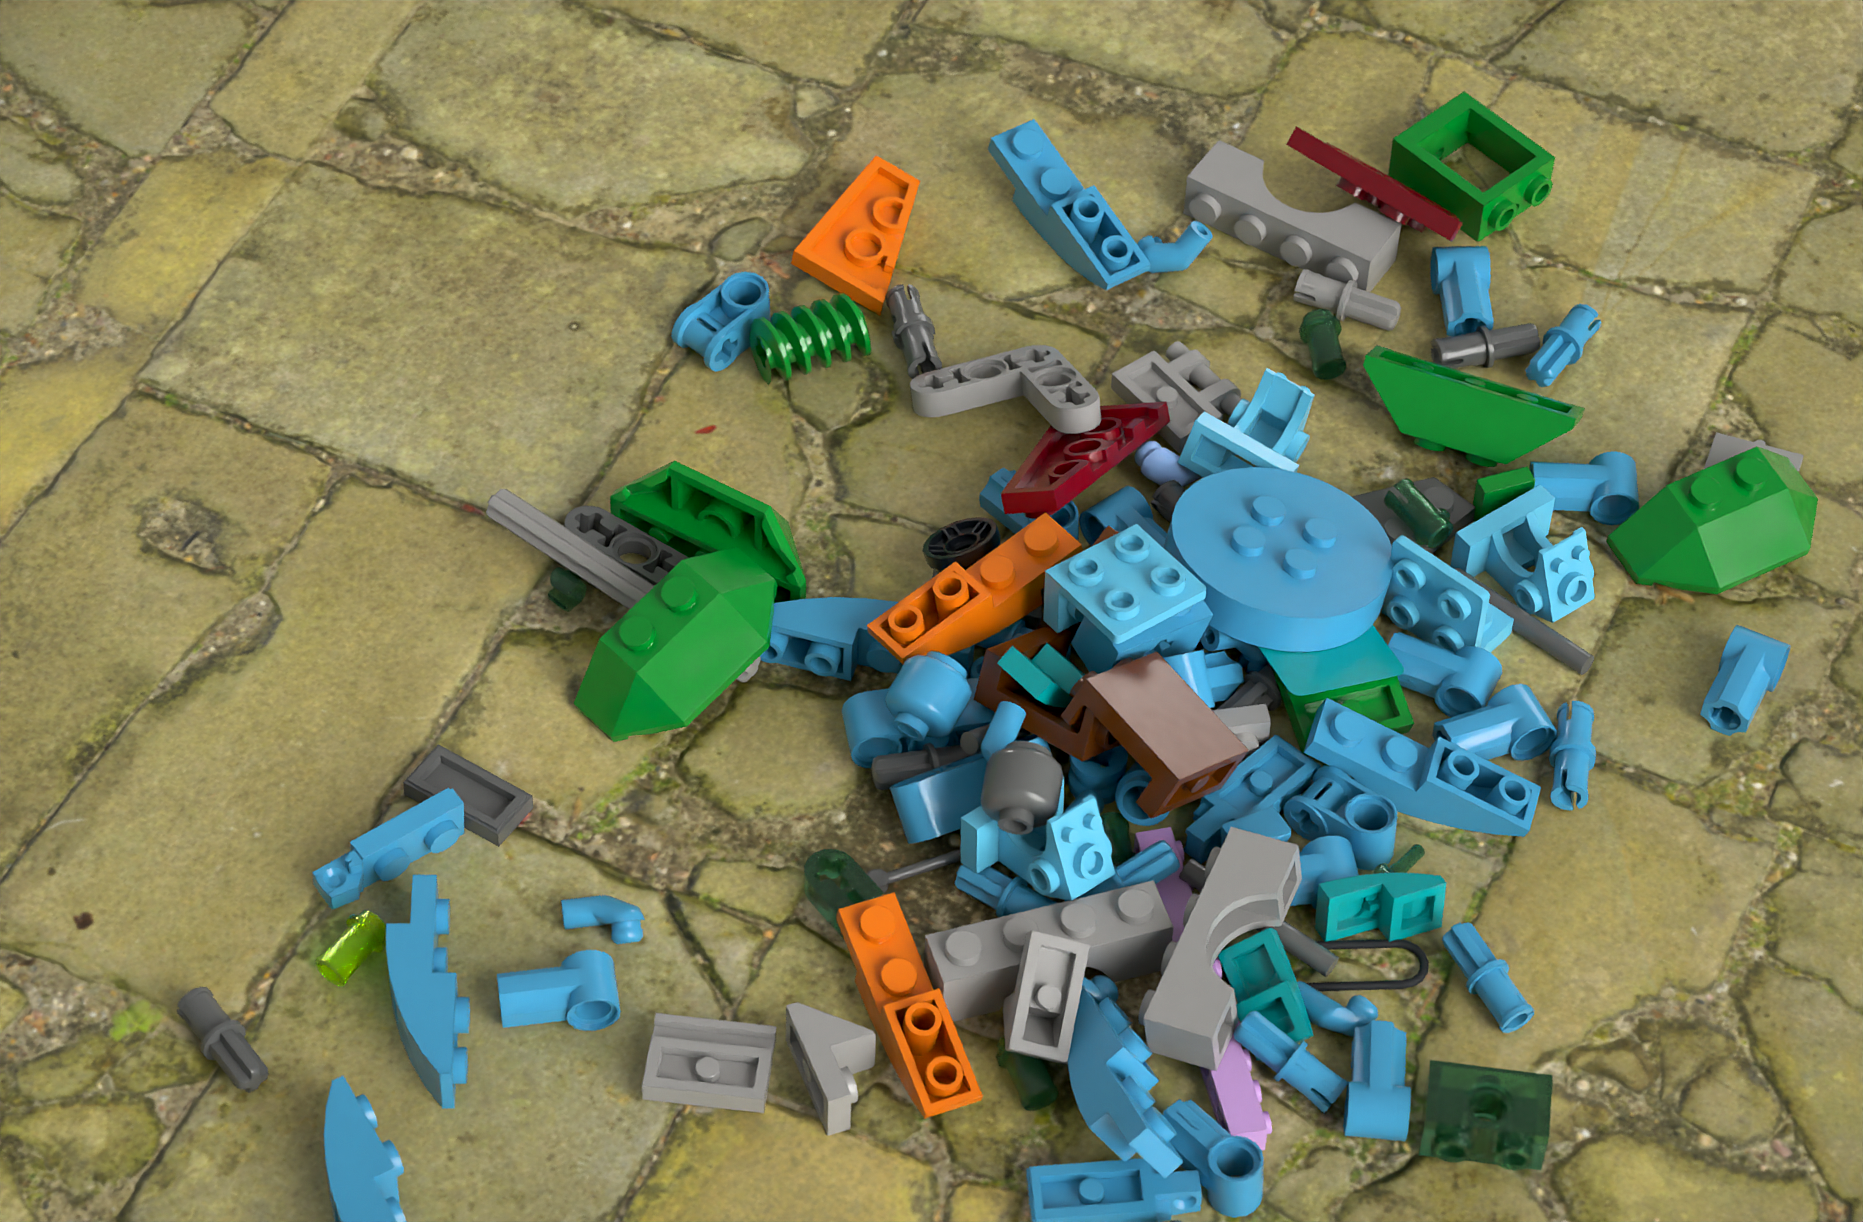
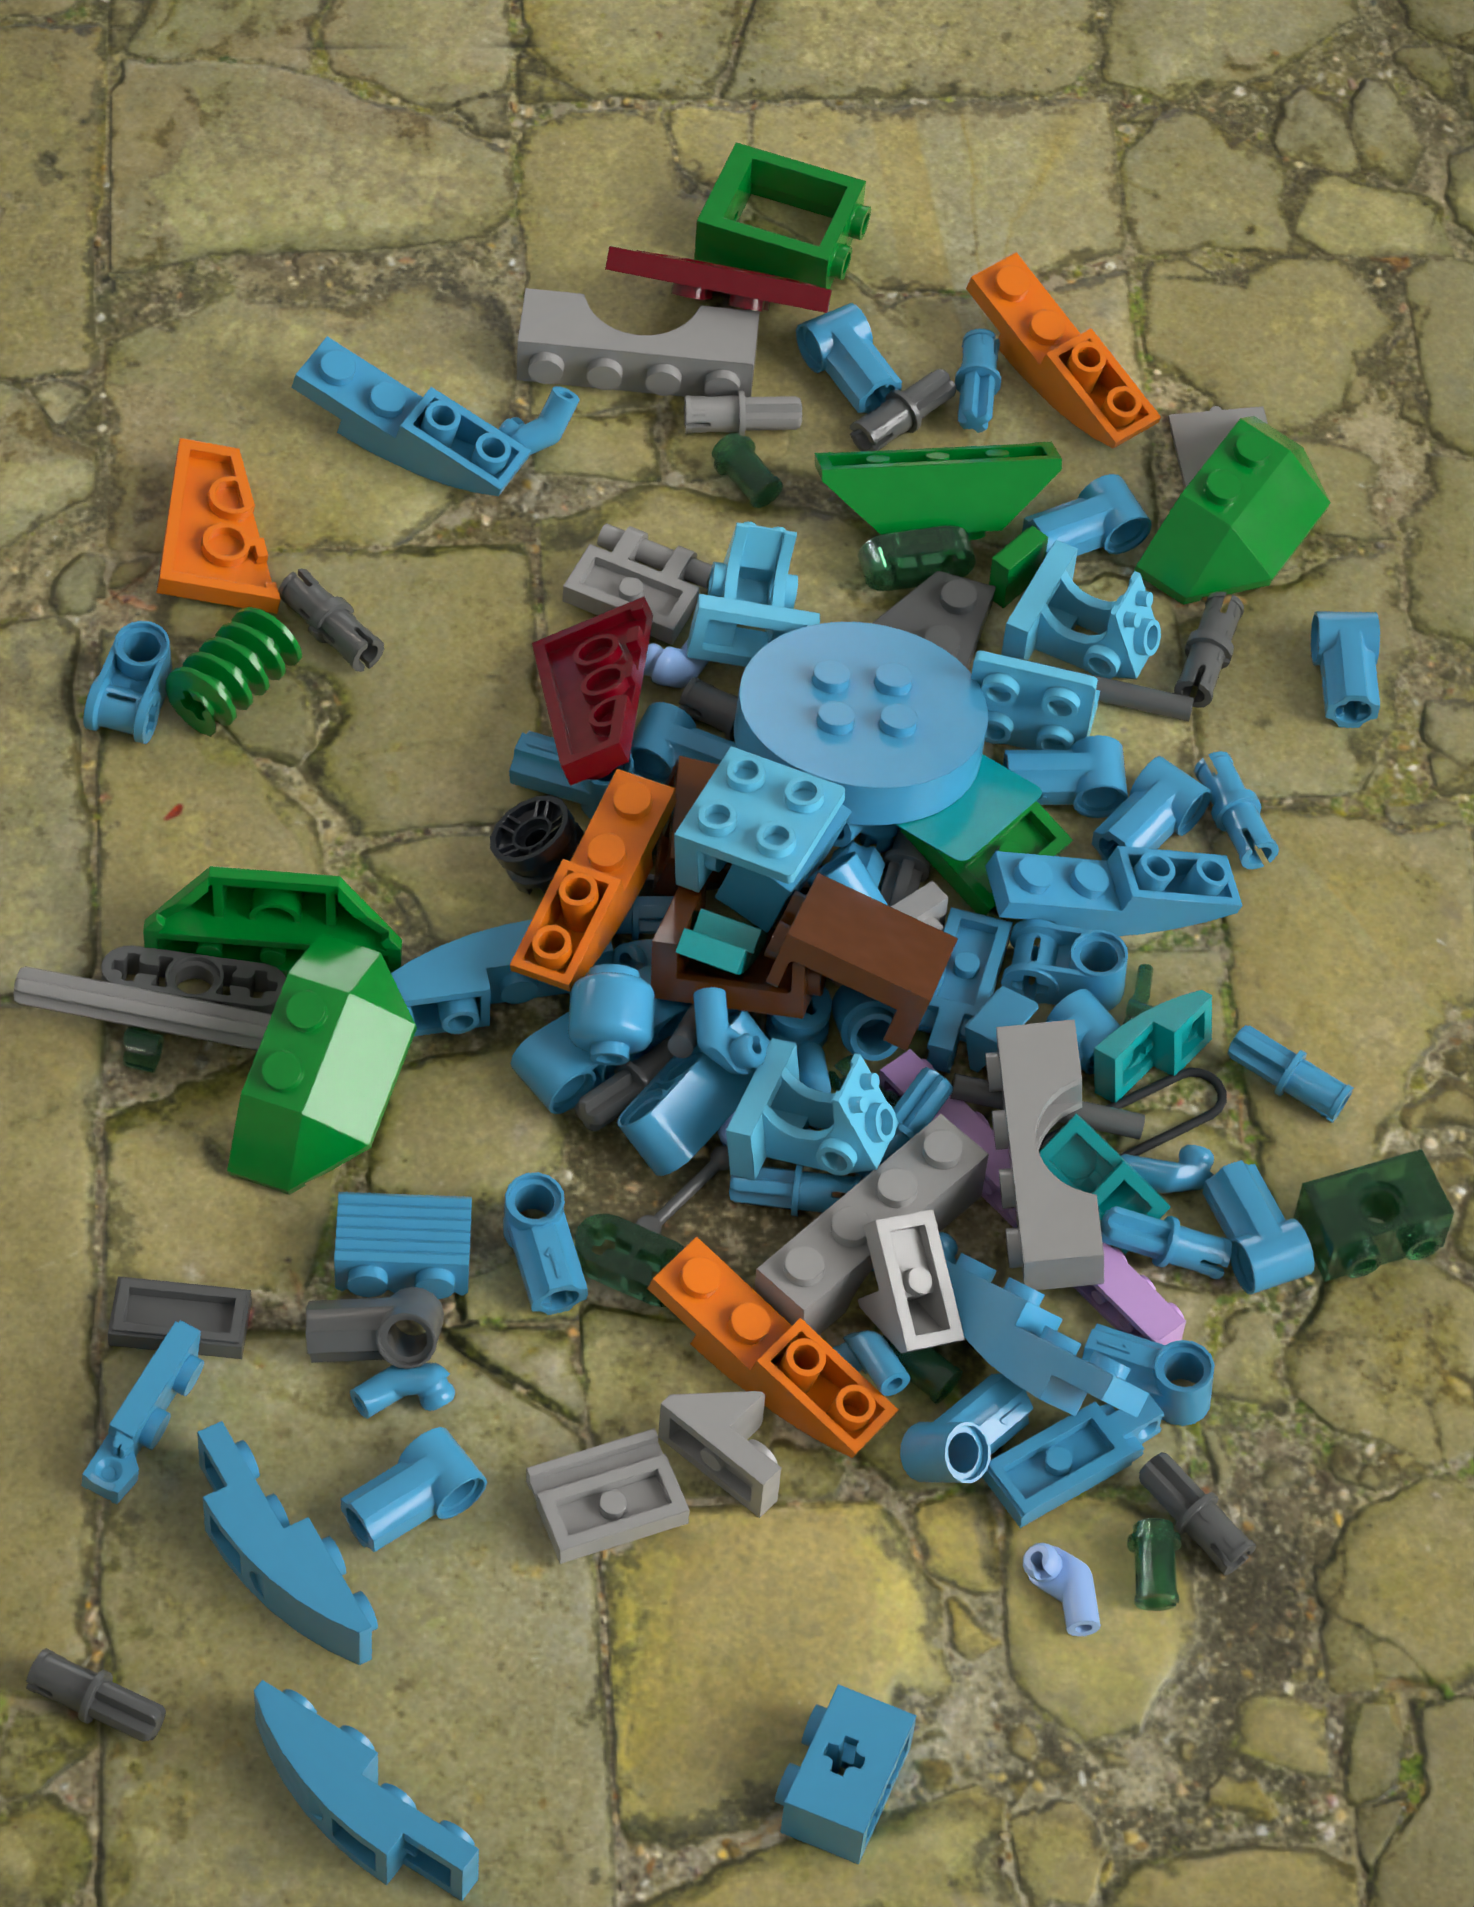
camera: 30 degrees left, 5 degrees up
(349, 951) = (168, 1536): clear neon green pin -> none
(604, 859) = (368, 1328): none -> dark grey piece
(669, 809) = (402, 1243): none -> dark azure brick
(778, 853) = (543, 1245): none -> dark azure piece
(986, 1048) = (874, 1356): none -> dark azure arm
(1021, 787) = (778, 1074): dark grey head -> none
(1030, 371) = (466, 620): light grey beam -> none
(1032, 1138) = (967, 1434): none -> dark azure piece
(1421, 458) = (913, 556): none -> clear green beam
(1428, 523) = (960, 619): clear green pin -> none
(1631, 623) = (1209, 648): none -> dark grey pin
(1641, 350) = (1061, 364): none -> orange slope

